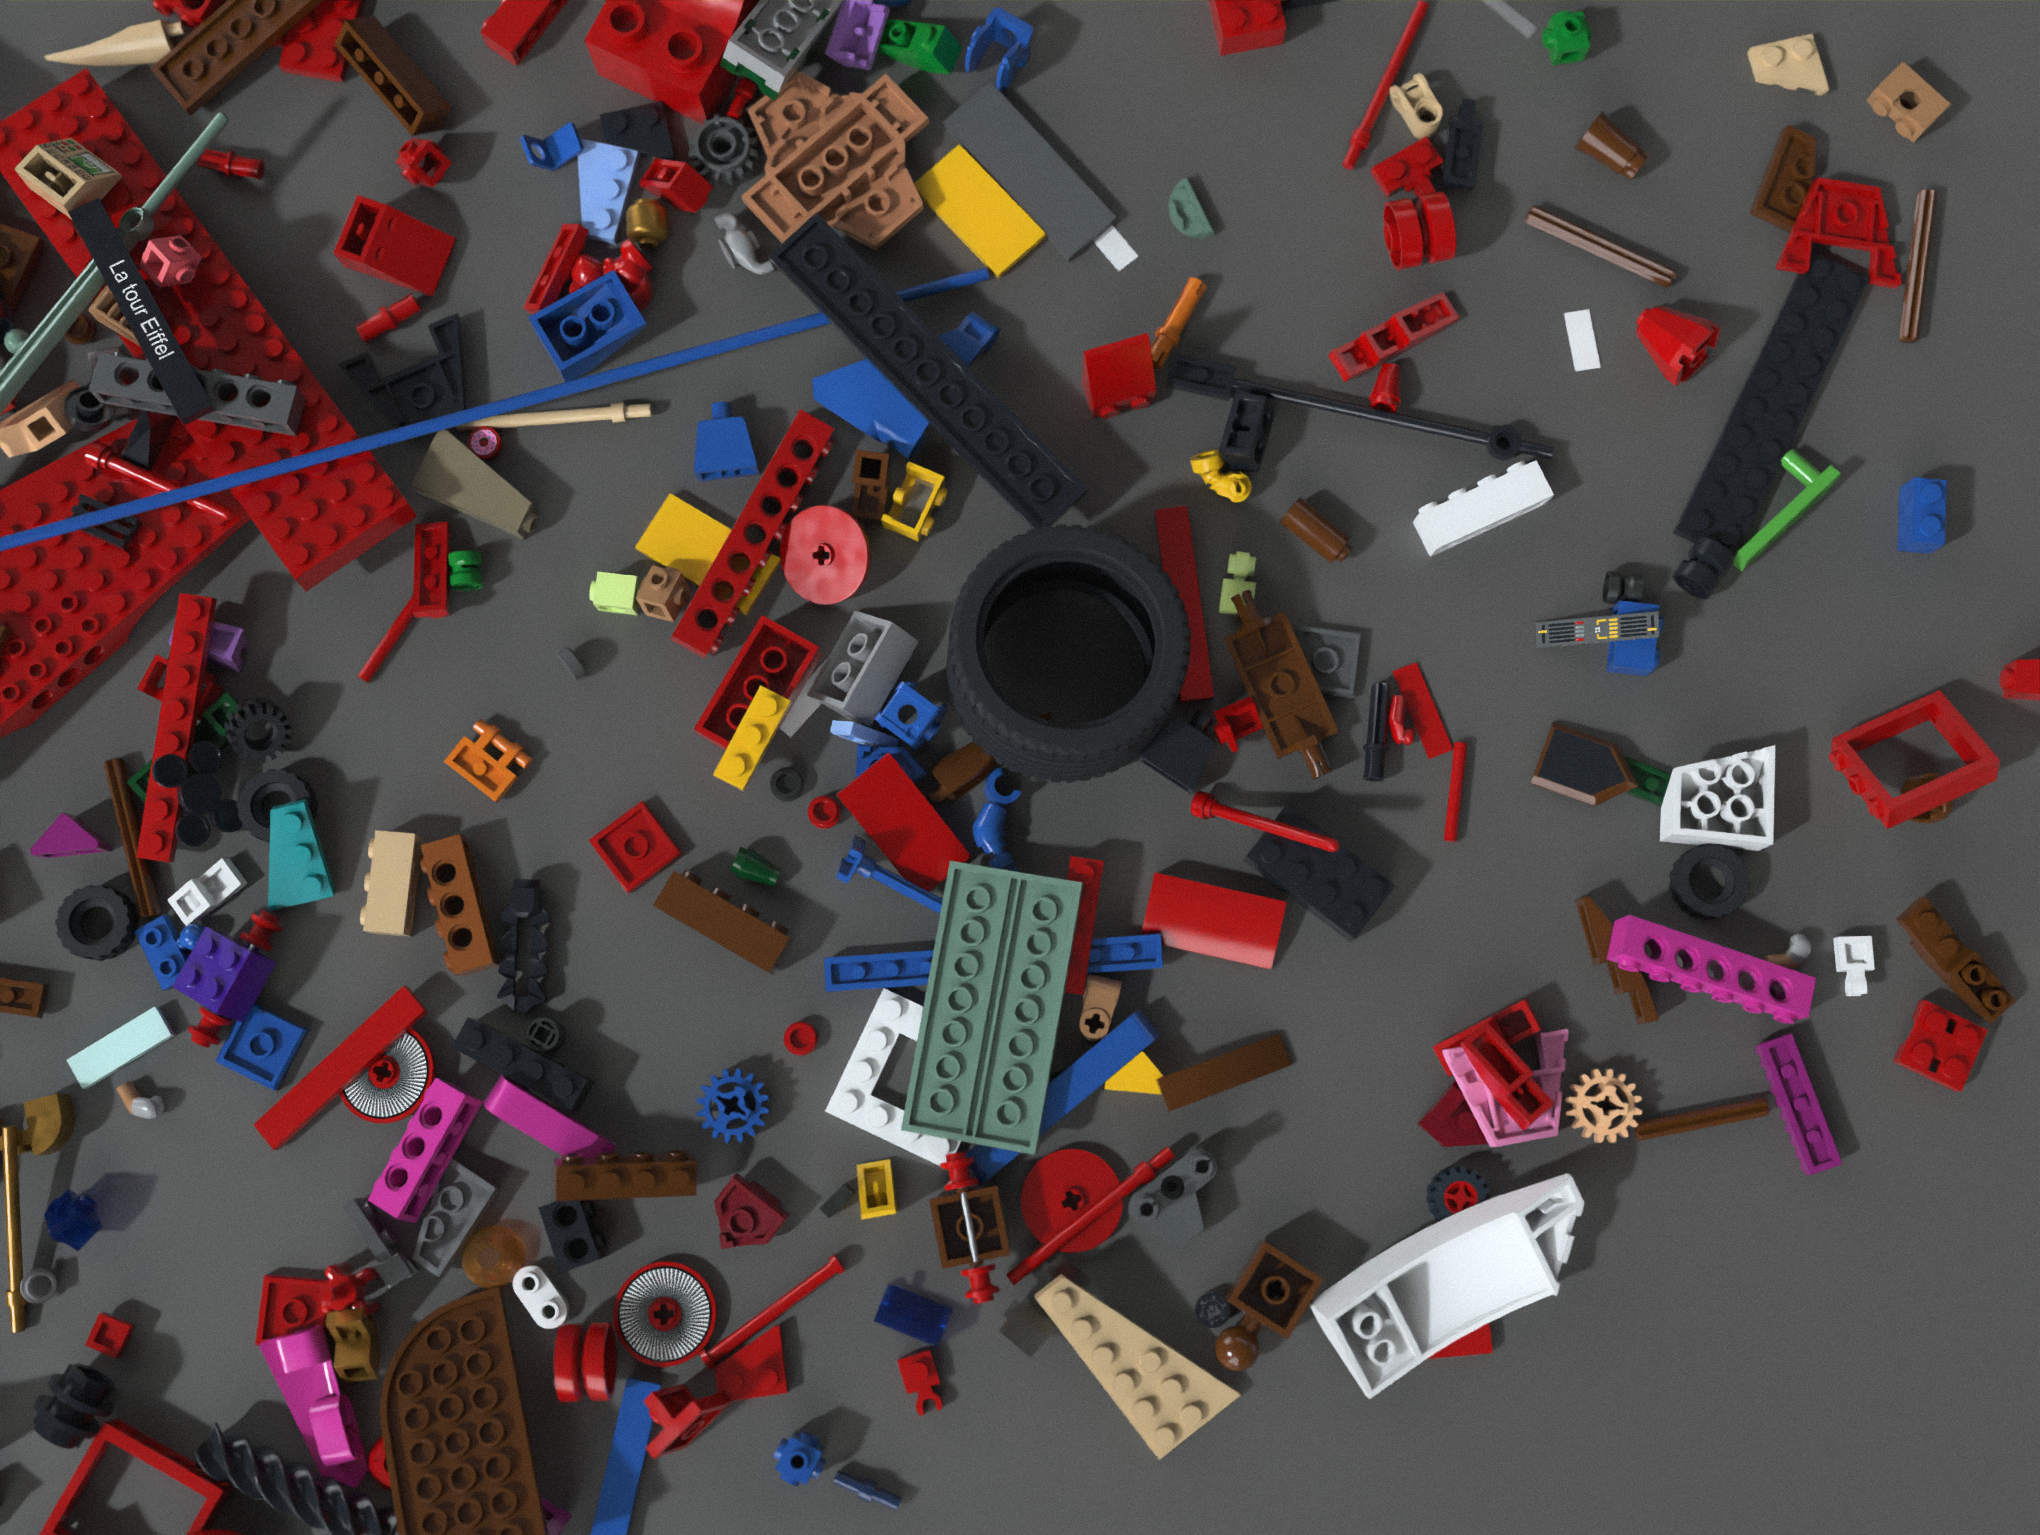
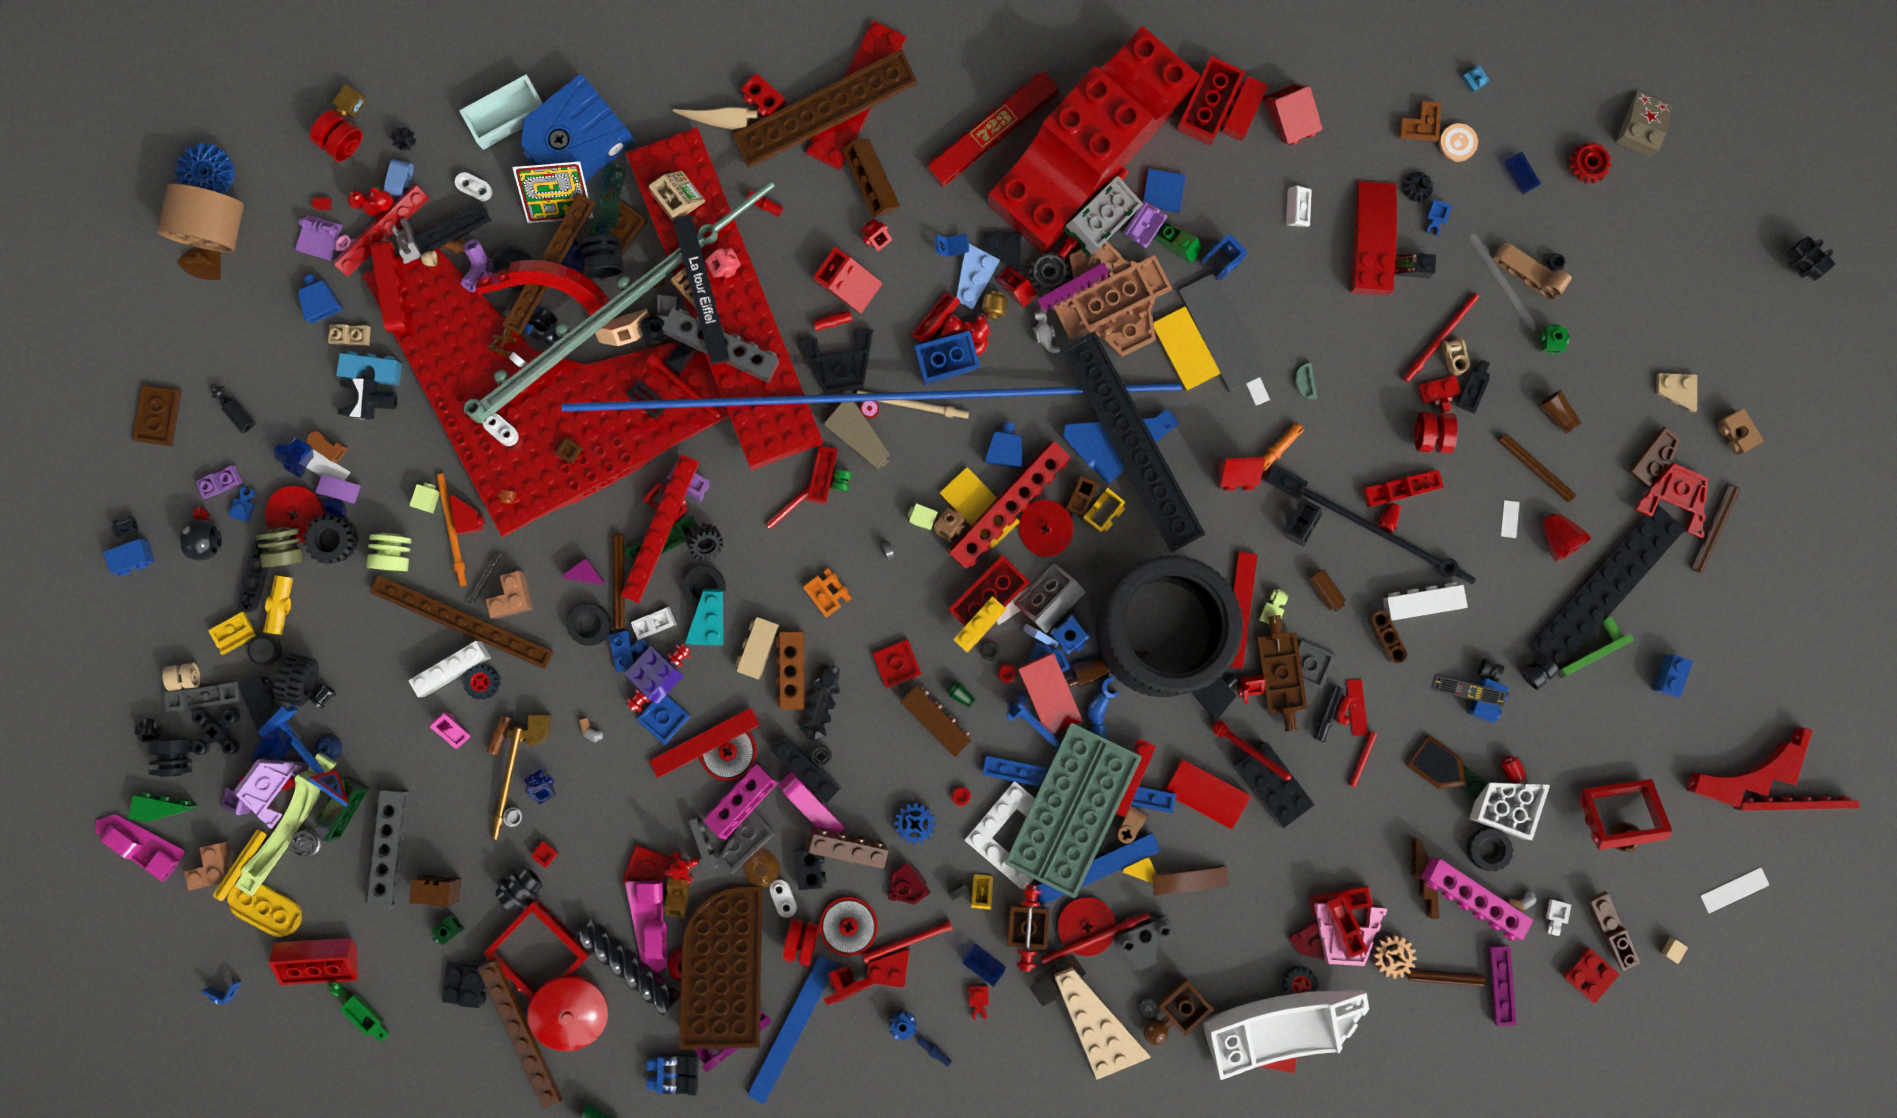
camera: 15 degrees right, 5 degrees up
(120, 1047) = (585, 697): light aqua tile -> none
(197, 793) = (663, 568): black piece -> none
(762, 156) = (1075, 285): none -> magenta gear
(1231, 485) = (1284, 549): yellow arm -> none
(1435, 564) = (1395, 642): none -> reddish brown beam
(1708, 739) = (1513, 769): none -> red brick

